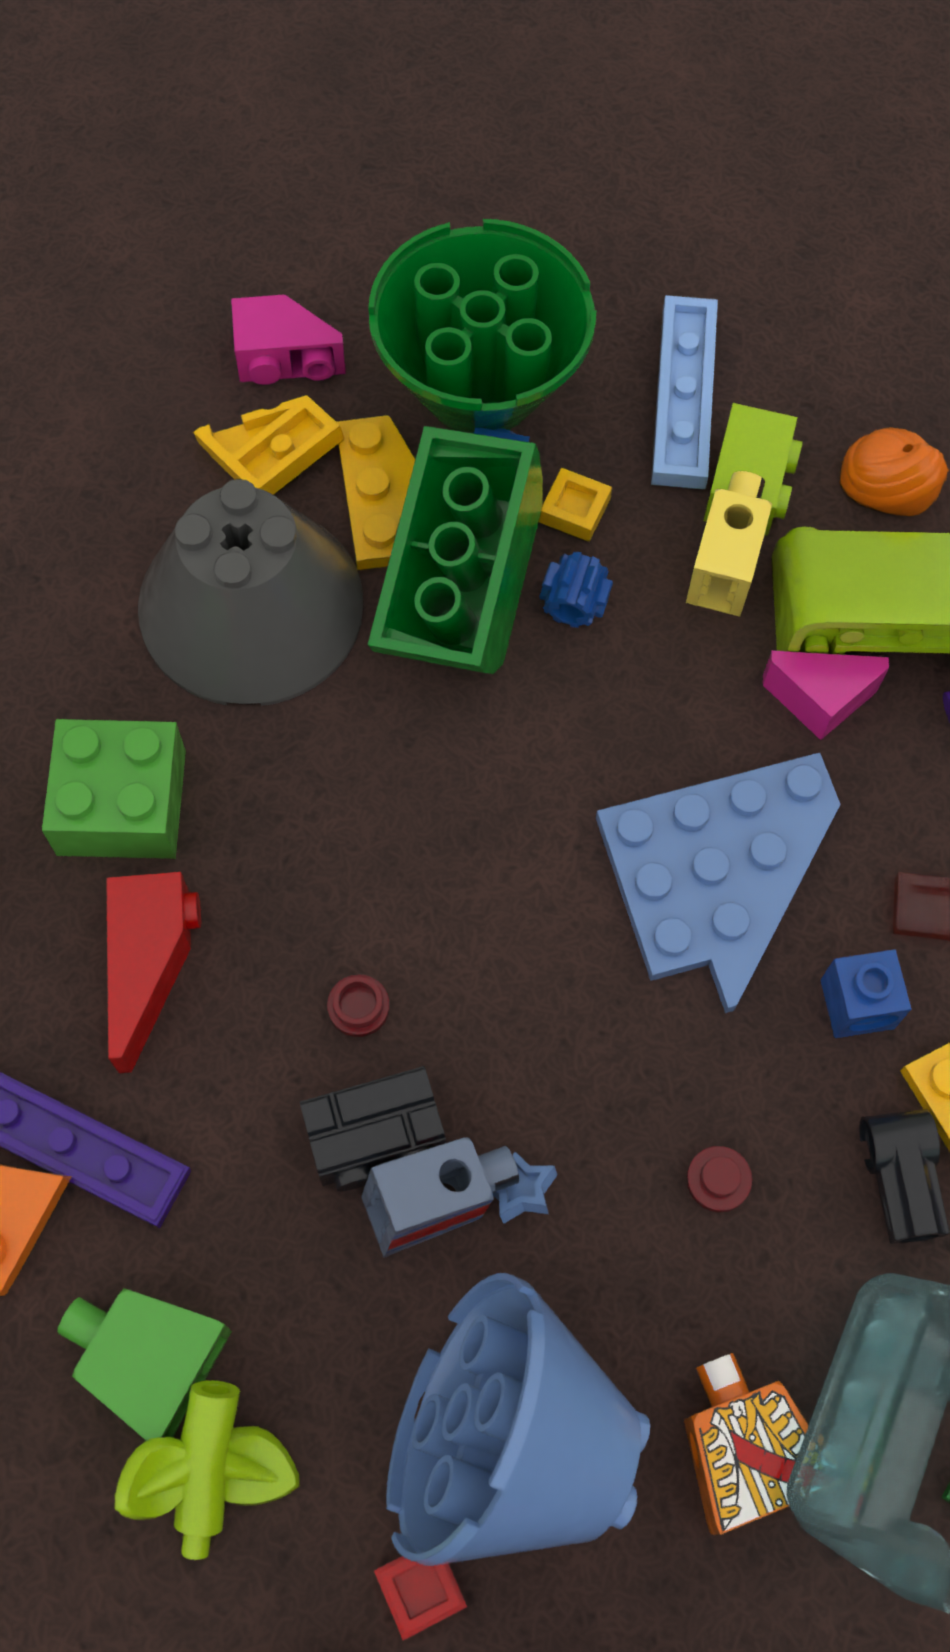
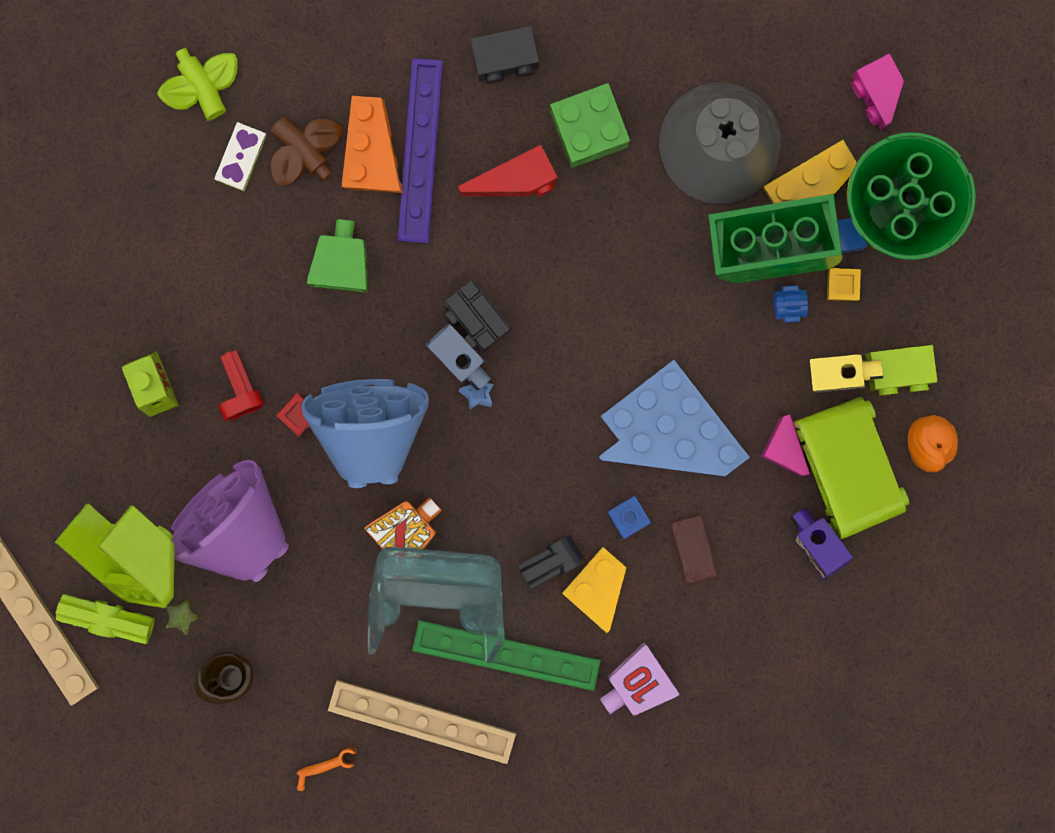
camera: 70 degrees right, 20 degrees up
(205, 1469) = (307, 307): lime plant -> none
(273, 443) = (814, 113): yellow wing -> none
(358, 1005) = (532, 286): dark red plate -> none
(684, 393) = (940, 316): light blue plate -> none
(719, 1179) = (517, 479): dark red plate -> none

